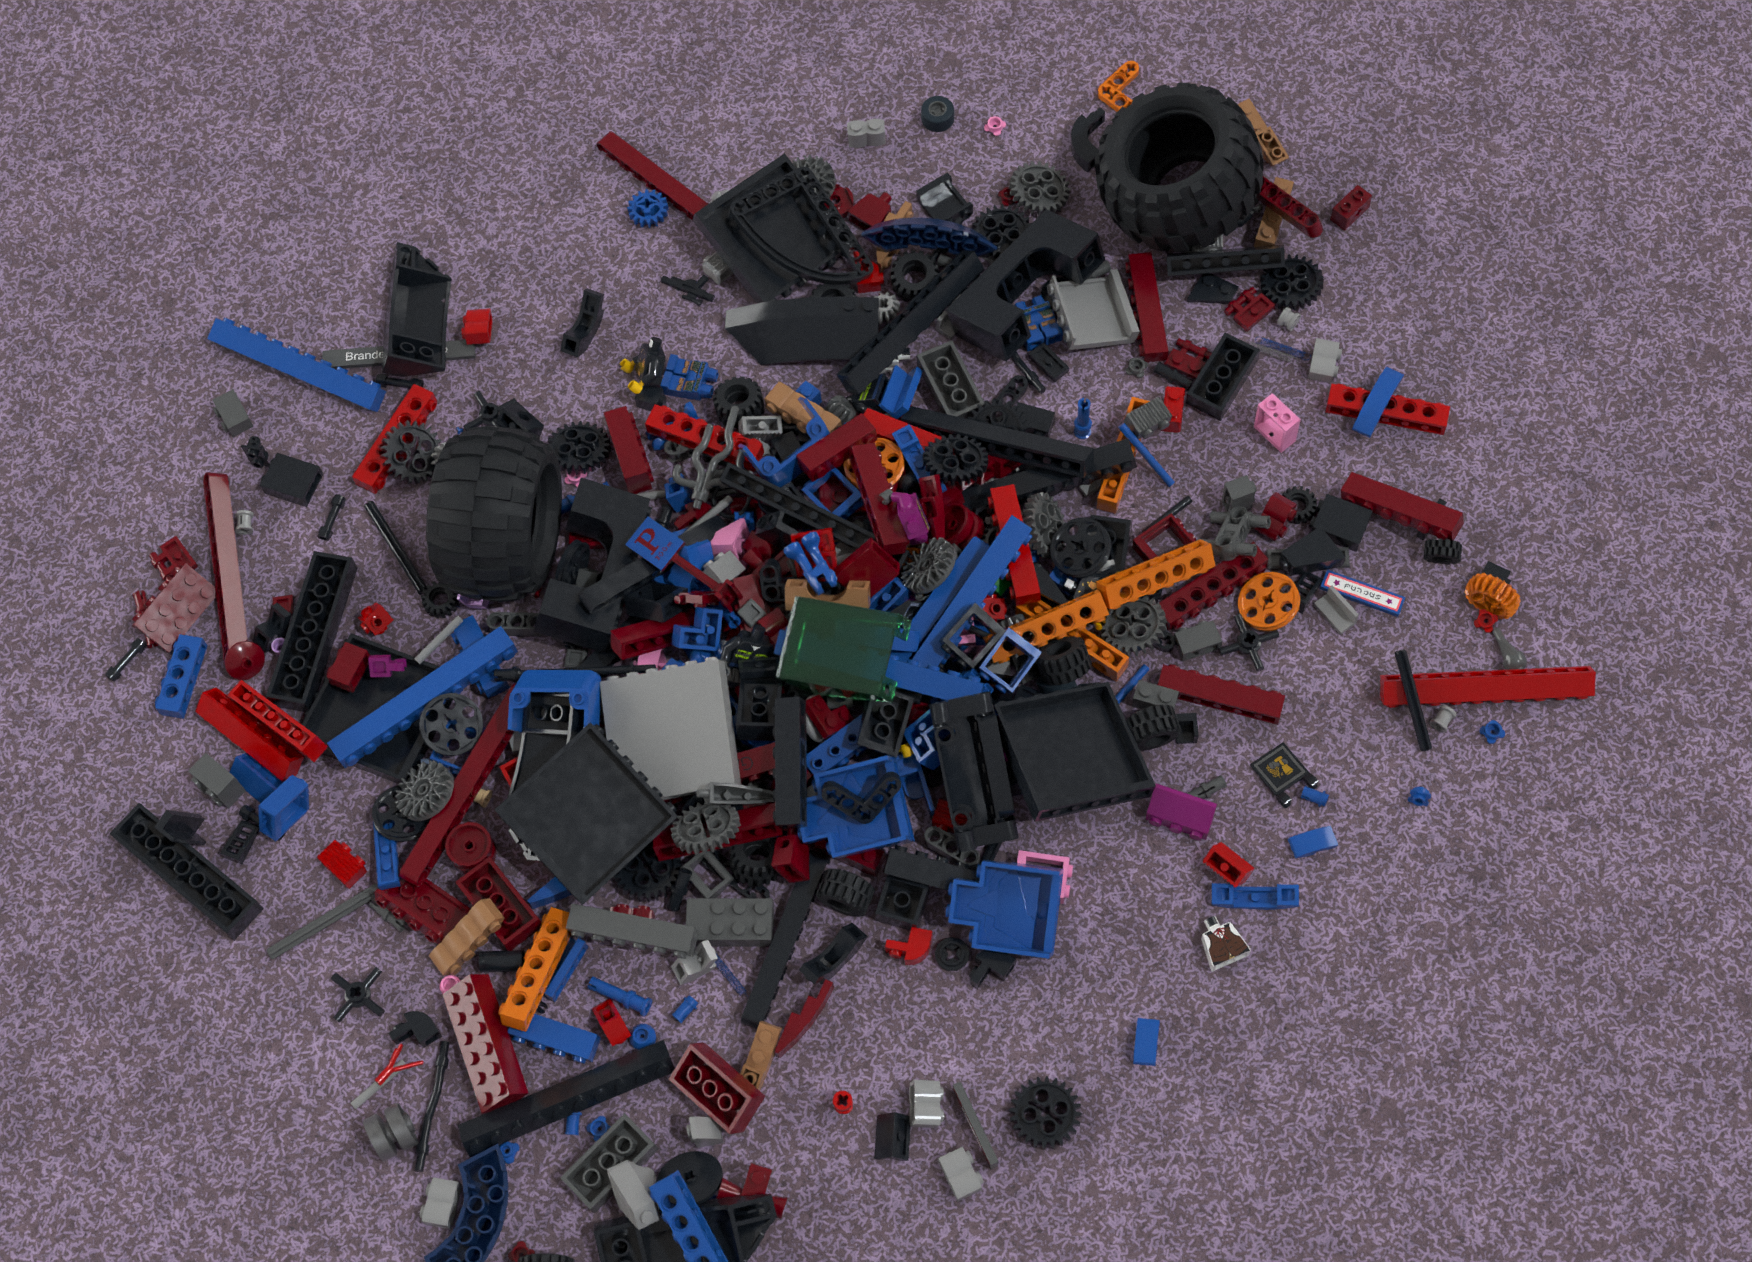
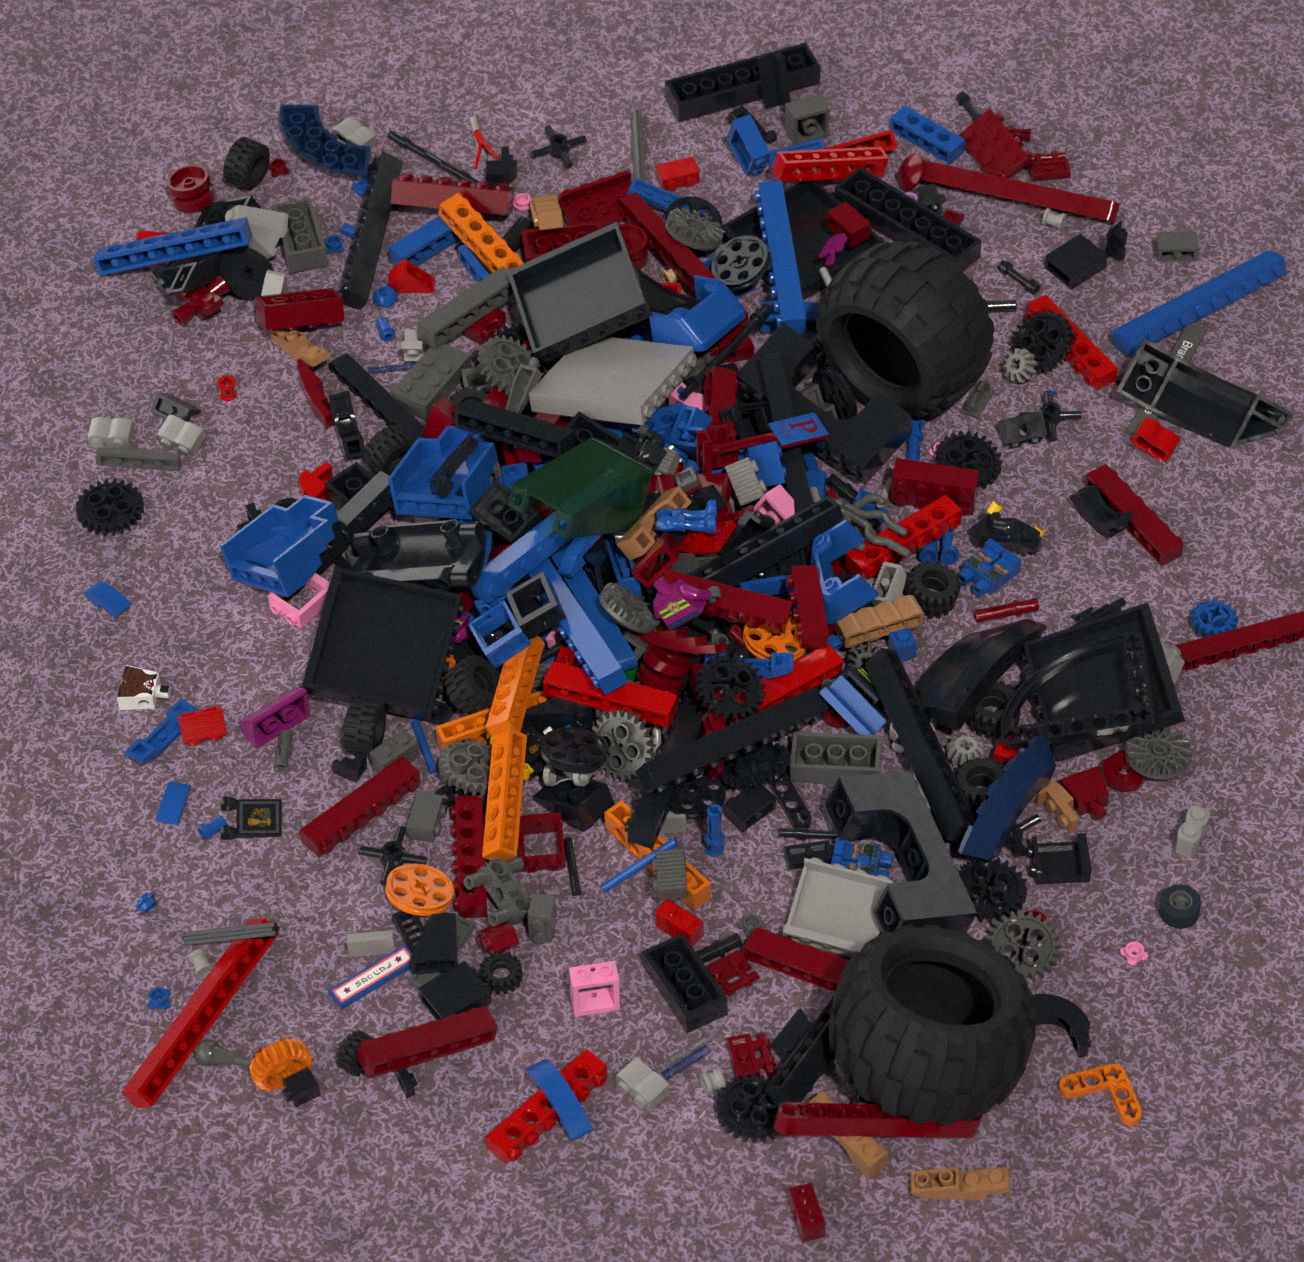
camera: 115 degrees right, 15 degrees down
(396, 1129) = (428, 121): flat silver wheel -> none
(565, 311) = (1146, 525): none -> dark red brick
(629, 999) = (421, 298): blue pin -> none
(716, 343) = (1006, 610): none -> dark red pin

